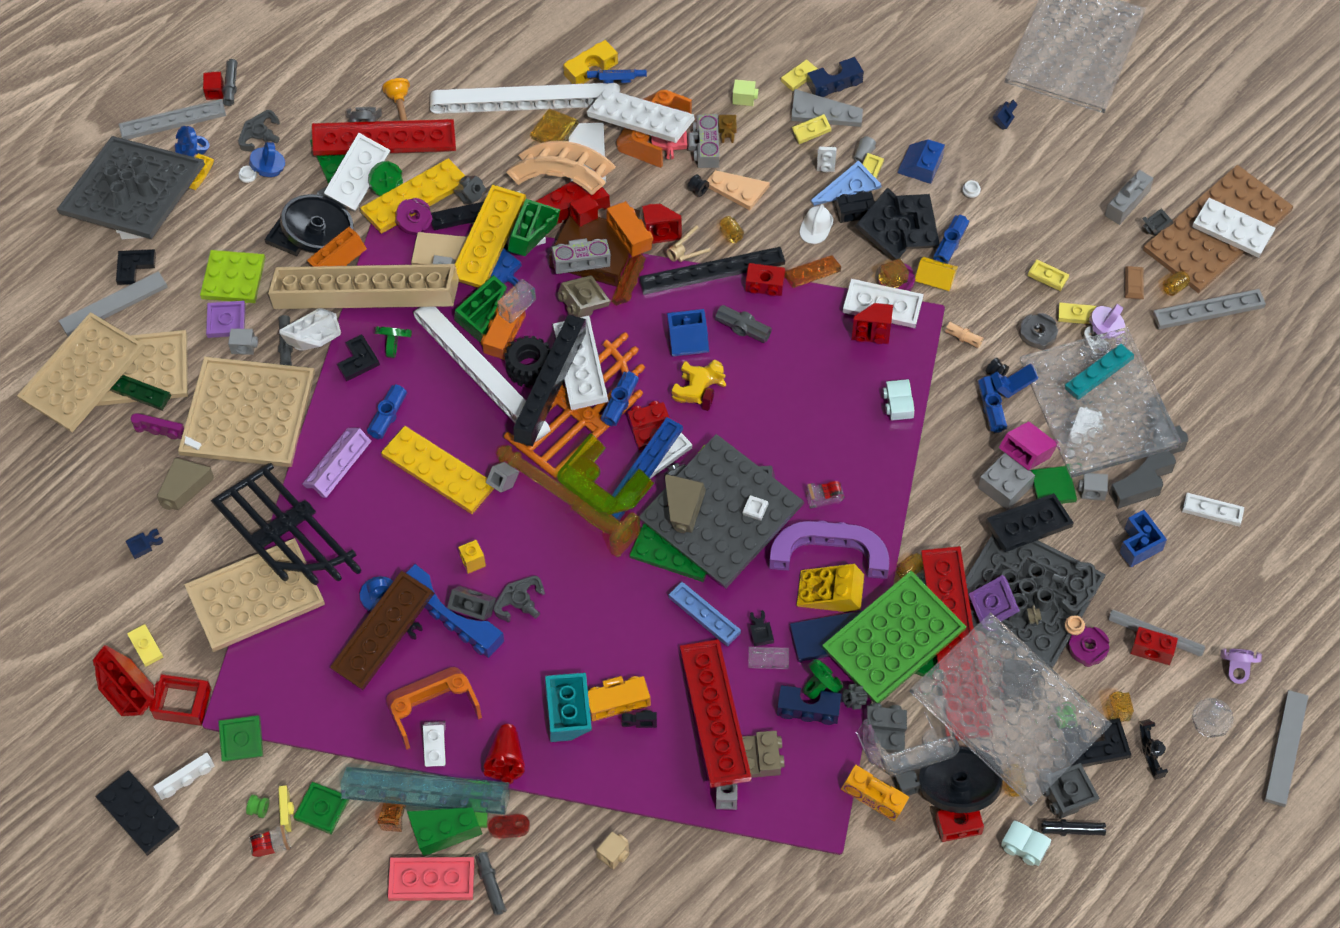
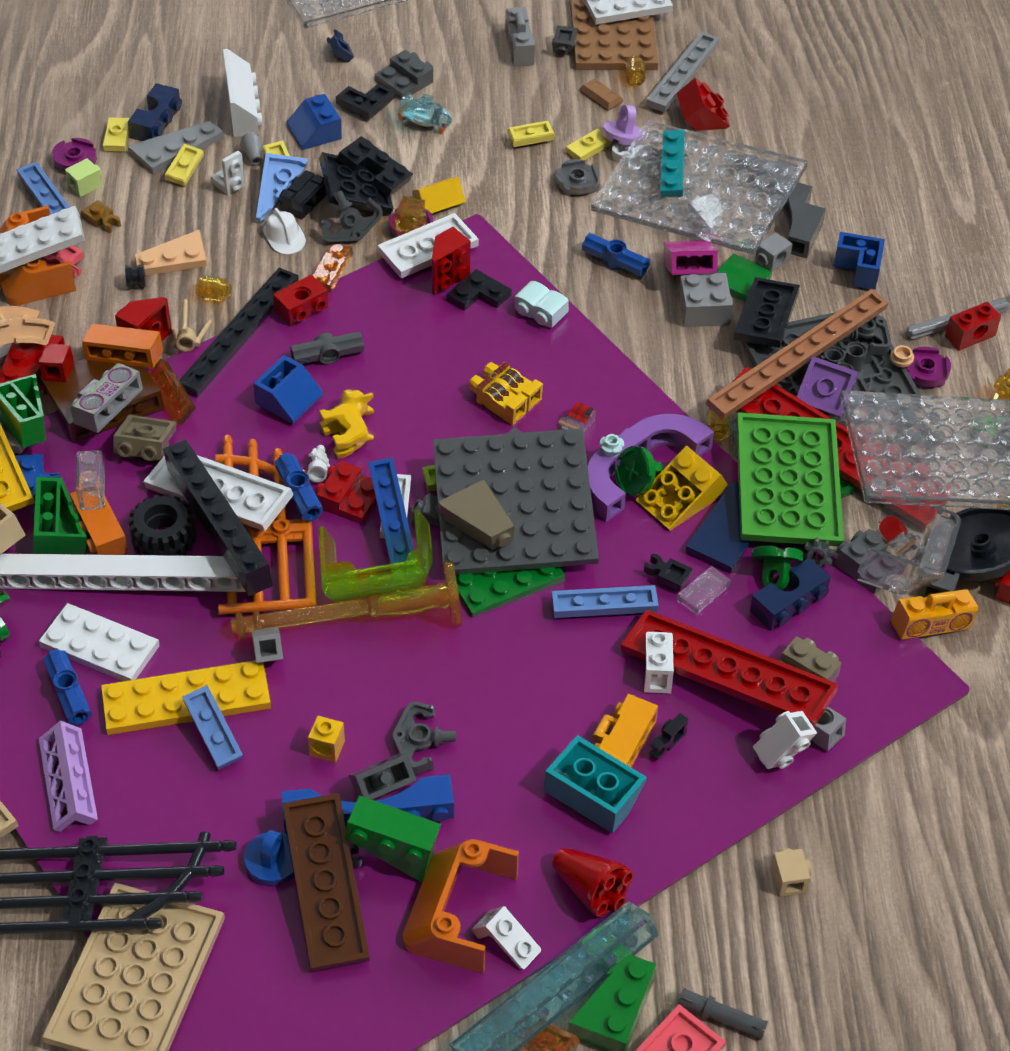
camera: 50 degrees left, 10 degrees down
(426, 498) = (212, 727): none -> medium blue plate
(431, 401) = (99, 643): none -> white plate
(433, 637) = (393, 836): none -> green wedge
(509, 826) = (670, 945): clear red plate -> none
(659, 391) = (319, 466): none -> white piece
(685, 672) = (659, 662): none -> white bracket
(689, 779) = (784, 739): none -> white brick
(707, 150) = (103, 238): light grey piece -> none
(707, 399) = (376, 429): dark red tile -> none
(712, 86) = (41, 187): none -> medium blue plate
(755, 508) = (550, 466): white tile -> none
(766, 68) = (65, 153): none -> magenta plate
(806, 432) = (506, 391): none -> yellow hips
(814, 553) = (637, 470): none -> green tile
(815, 530) = (611, 445): none -> light aqua plate
(857, 252) = (353, 225): none -> dark grey piece
(877, 354) = (478, 286): none -> black plate
(897, 104) = (242, 95): none -> white slope
(915, 730) = (896, 535): none -> leg
(951, 239) = (418, 160): blue piece -> none
(964, 334) = (523, 223): light nougat pin -> none
(971, 170) = (365, 104): none -> black plate
(971, 189) = (383, 116): white plate -> none
(996, 205) = (424, 111): none -> clear light blue animal
(996, 366) = (583, 226): black wheel -> none
(1000, 565) = (796, 354): none -> nougat plate
(1016, 382) = (614, 220): blue bracket -> none
(1022, 168) = (405, 74): none -> dark grey plate
(1034, 615) = (866, 373): dark tan plate -> none
(1185, 347) = (702, 107): none -> red slope
(1213, 509) = (874, 203): white tile -> none

